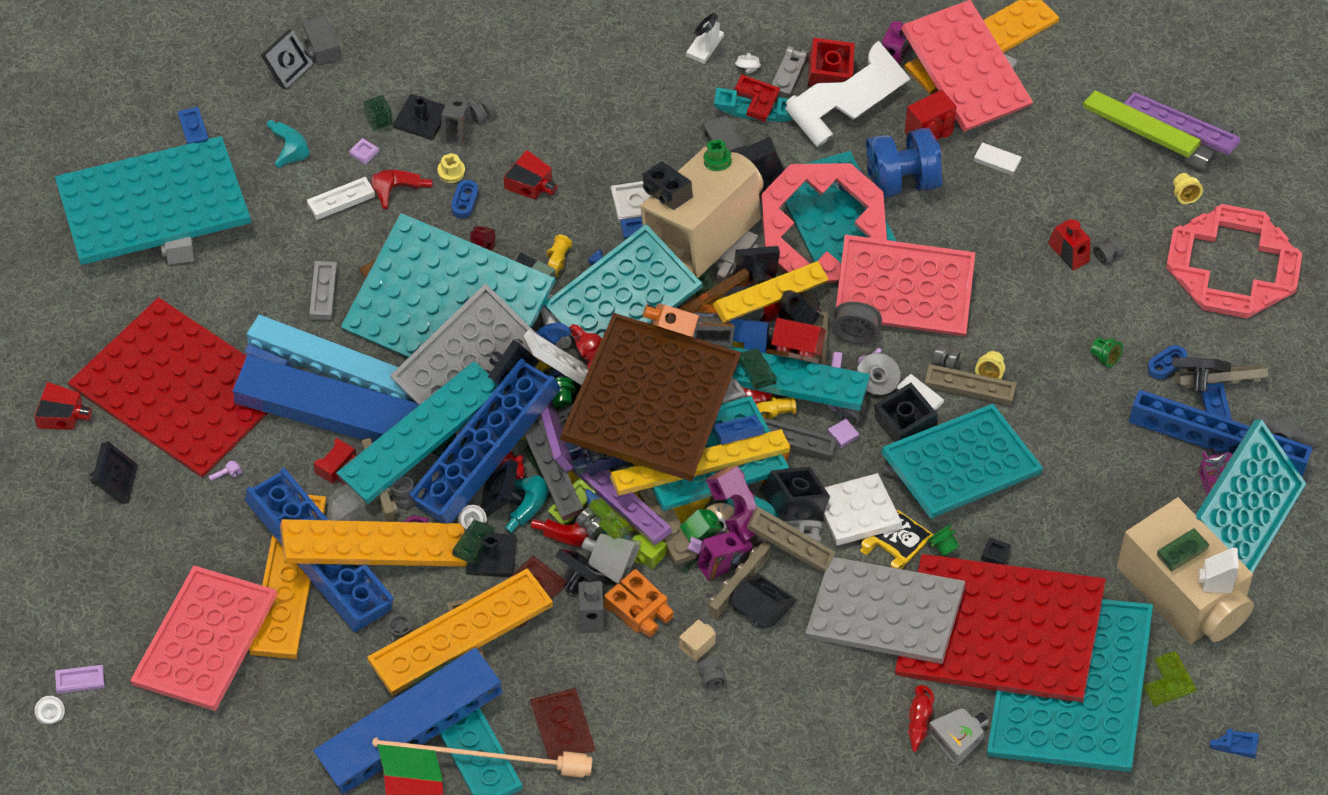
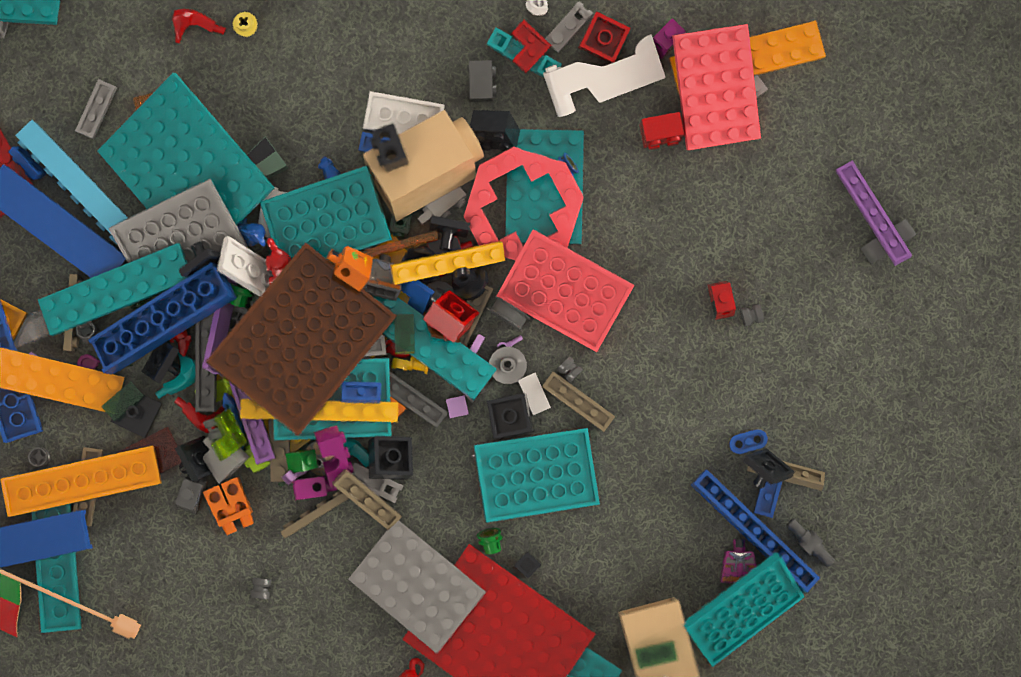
camera: 25 degrees right, 30 degrees up
(334, 461) = (48, 282): red piece -> none
(340, 198) = (143, 20): white plate -> none
(464, 200) = (243, 59): blue plate -> none
(470, 513) = (133, 374): white hat -> none
(483, 237) = (241, 108): dark red piece -> none
(530, 177) = (305, 59): red torso -> none
(557, 252) = (298, 143): yellow connector -> none
(562, 723) = (132, 585): clear red tile -> none
(697, 640) = (262, 554): tan brick -> none
(717, 156) = (444, 136): green piece -> none
(761, 600) = (327, 538): black slope -> none
(860, 510) = (437, 484): white plate -> none
(900, 543) = (459, 520): flag -> none
(920, 158) = (630, 171): blue piece -> none
(991, 365) = (602, 392): light yellow piece -> none
(997, 159) = (704, 185): white tile -> none
(1107, 351) = (703, 413): green piece -> none
(1142, 124) = (840, 199): lime tile -> none
(1187, 188) = (847, 278): light yellow piece -> none
(1262, 292) = (893, 357): coral plate -> none

